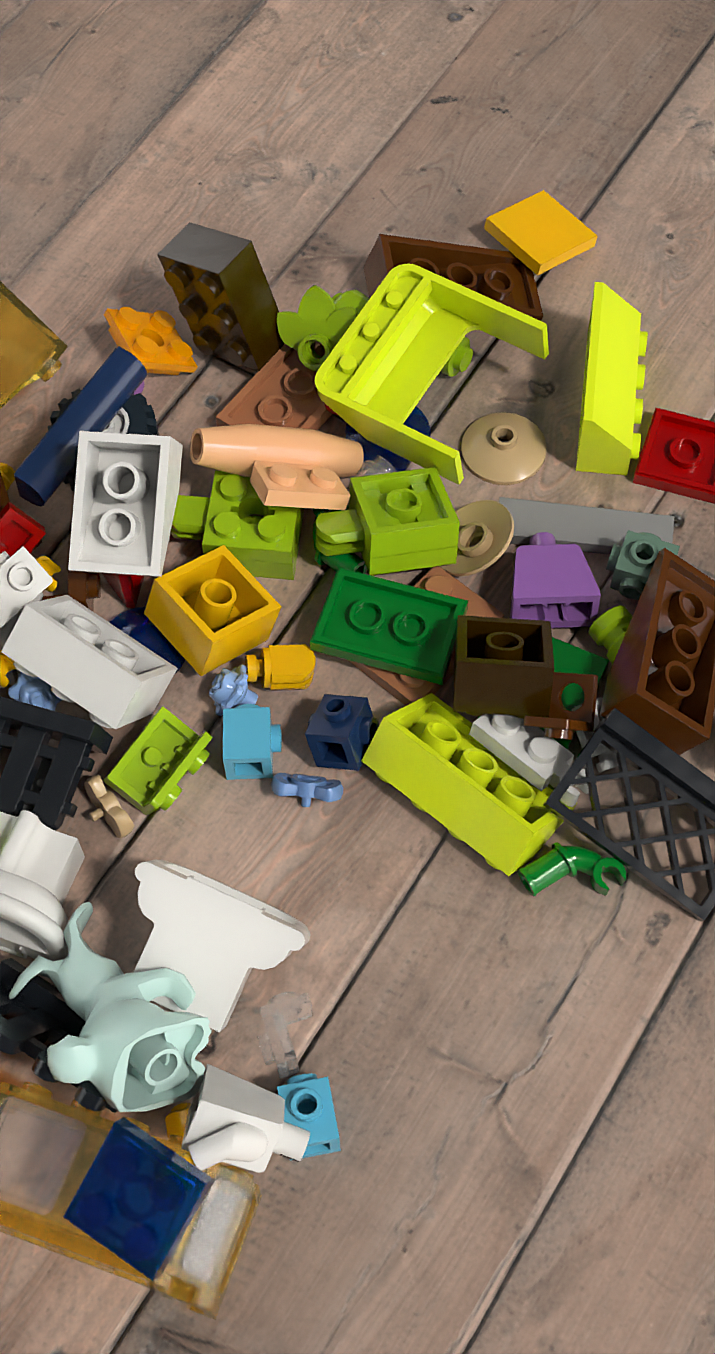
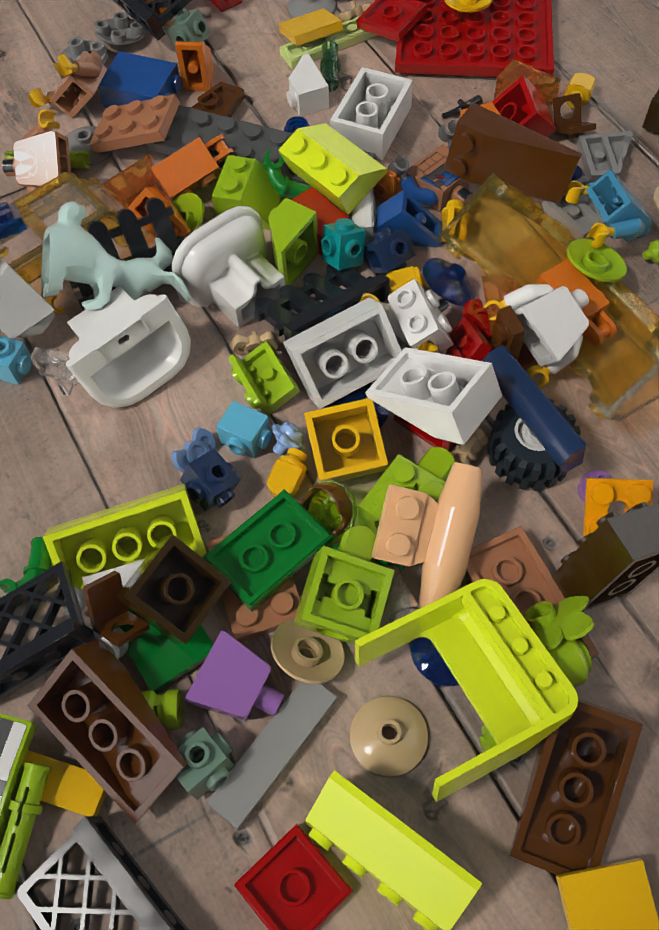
camera: 120 degrees right, 0 degrees up
(302, 587) = (332, 507): none -> piece

